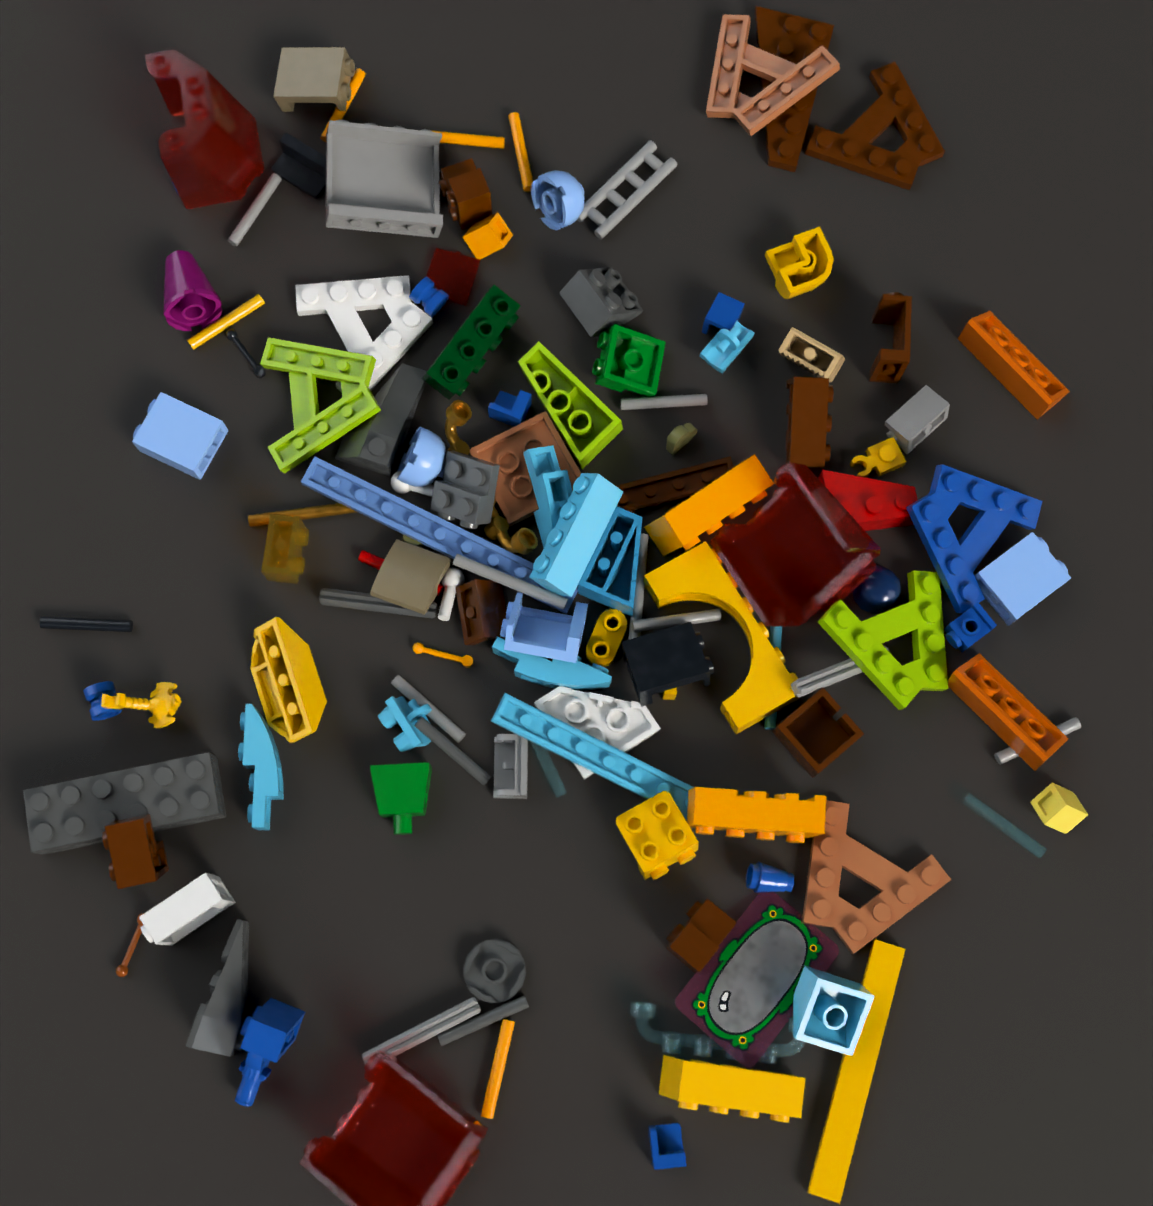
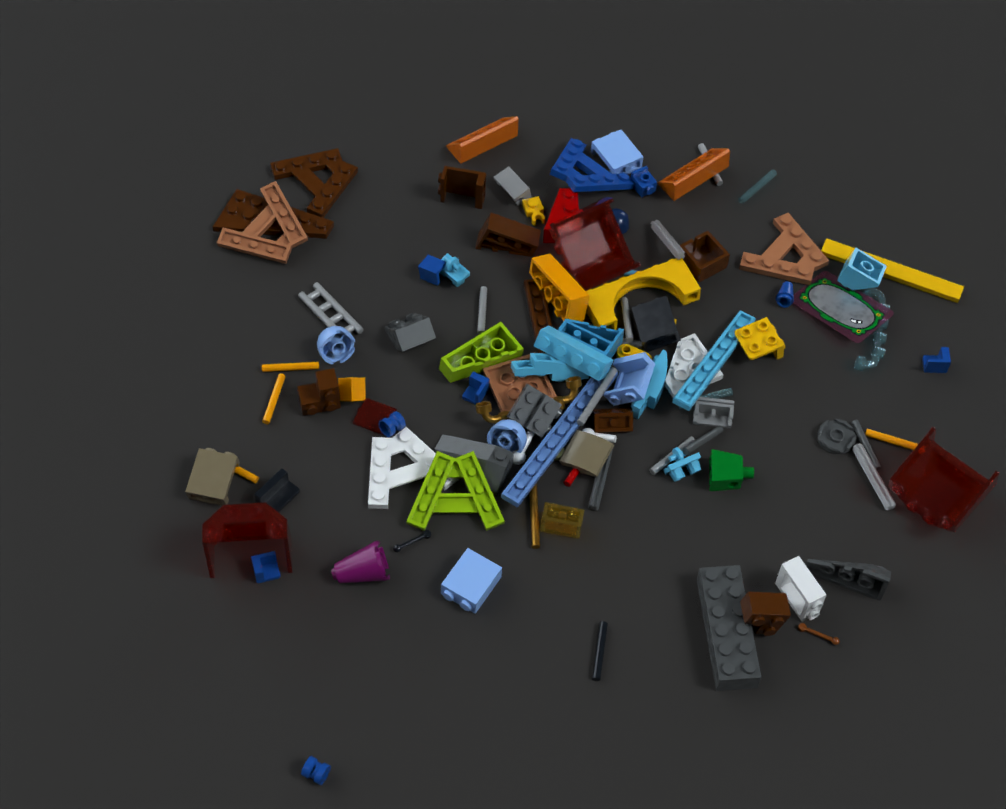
camera: 85 degrees left, 20 degrees down
(94, 696) = (656, 639): blue wheel -> none
(162, 705) = (662, 604): yellow piece -> none
(226, 321) = (389, 555): yellow bar -> none
(254, 210) = (304, 528): light grey bar -> none
(261, 754) = (698, 546): medium azure slope -> none
(266, 1039) = (879, 548): blue brick -> none
(286, 680) = (655, 527): yellow wedge -> none
(382, 179) = (301, 442): light grey panel -> none
(467, 660) = (642, 432): light orange hinge -> none
(471, 342) = (429, 403): dark green brick -> none
(628, 361) = (454, 322): green plate -> none
(680, 437) = (509, 302): olive tile -> none
(700, 936) = (820, 328): reddish brown brick -> none
(732, 1088) = (904, 326): yellow wedge -> none
(755, 814) = (750, 287): light orange wedge -> none
(801, 263) = (405, 225): yellow brick -> none
(811, 354) = (466, 227): tan brick -> none
(864, 641) = (648, 225): lime plate -> none
(1059, 808) = (750, 159): light yellow panel -> none

